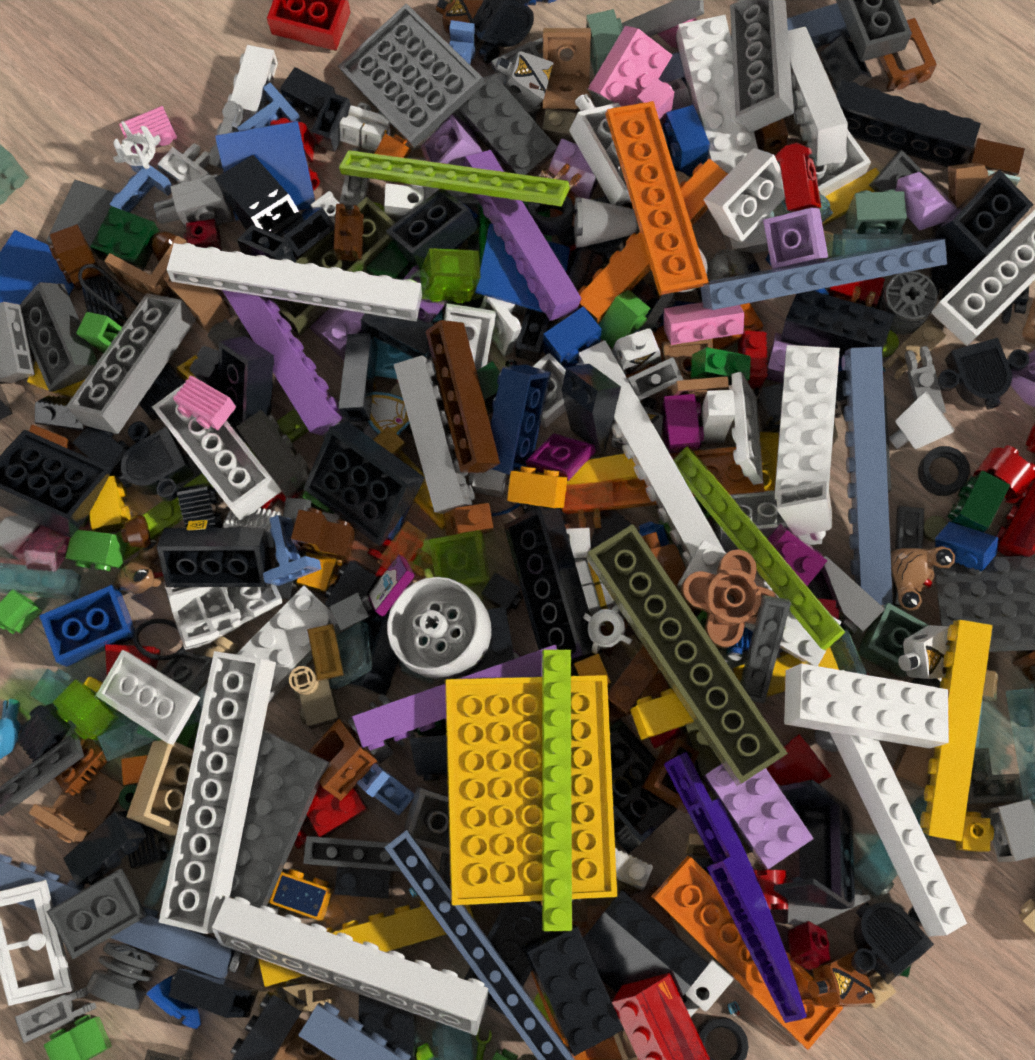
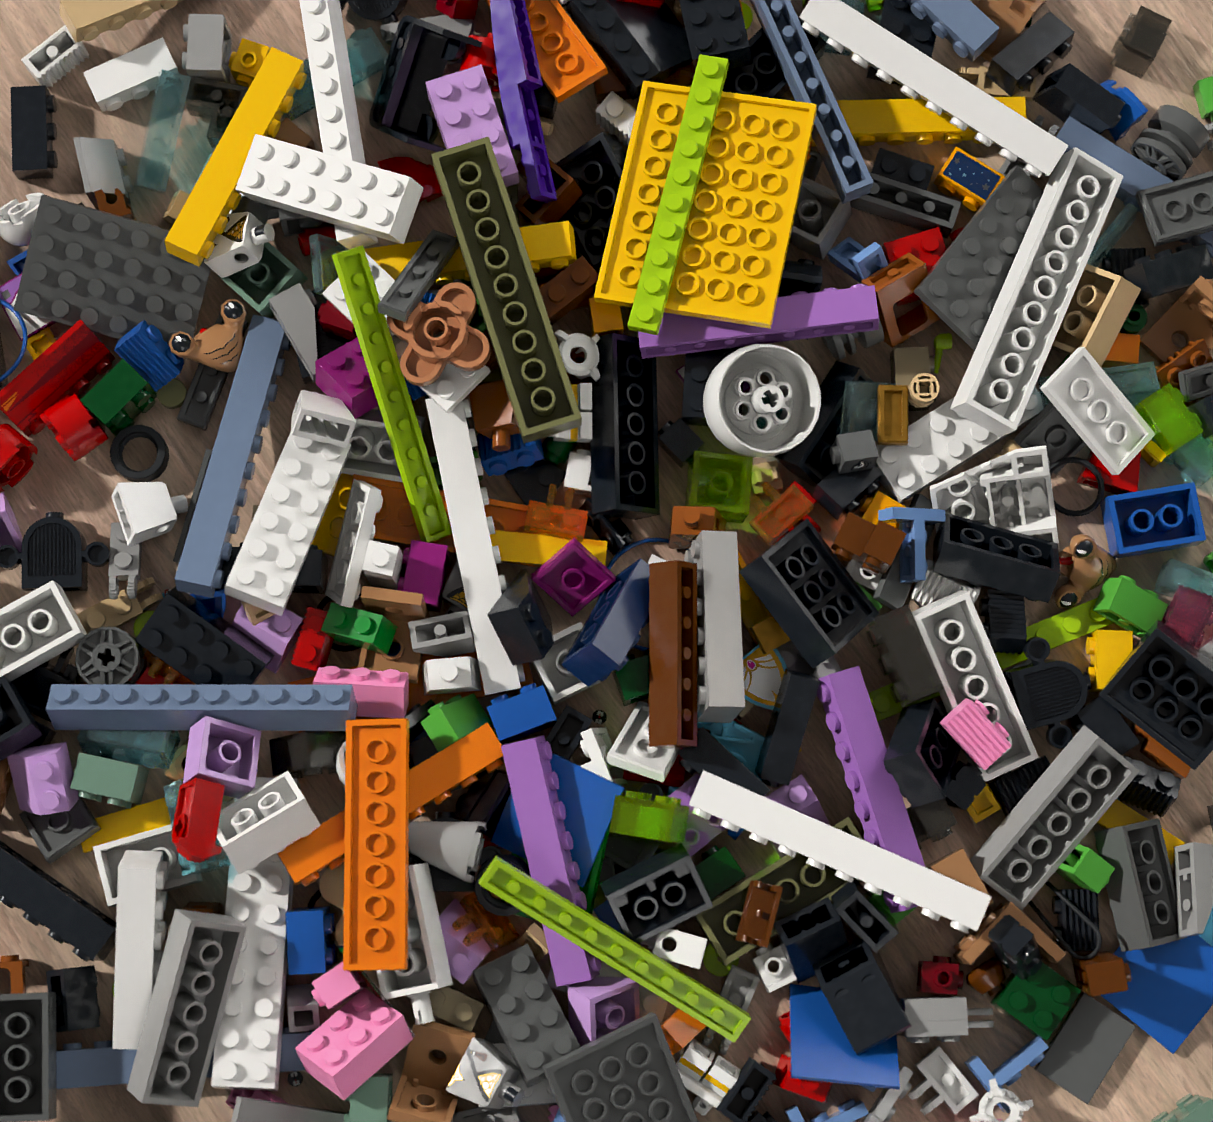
camera: 175 degrees left, 5 degrees up
(136, 532) = (1080, 609): reddish brown cone -> none
(143, 254) = (1015, 947): none -> black brick
(197, 525) = (1010, 597): yellow sticker -> none
(298, 739) = (941, 342): none -> lime hand
(391, 585) = (804, 465): tile -> none
(537, 488) = (612, 536): light orange brick -> none

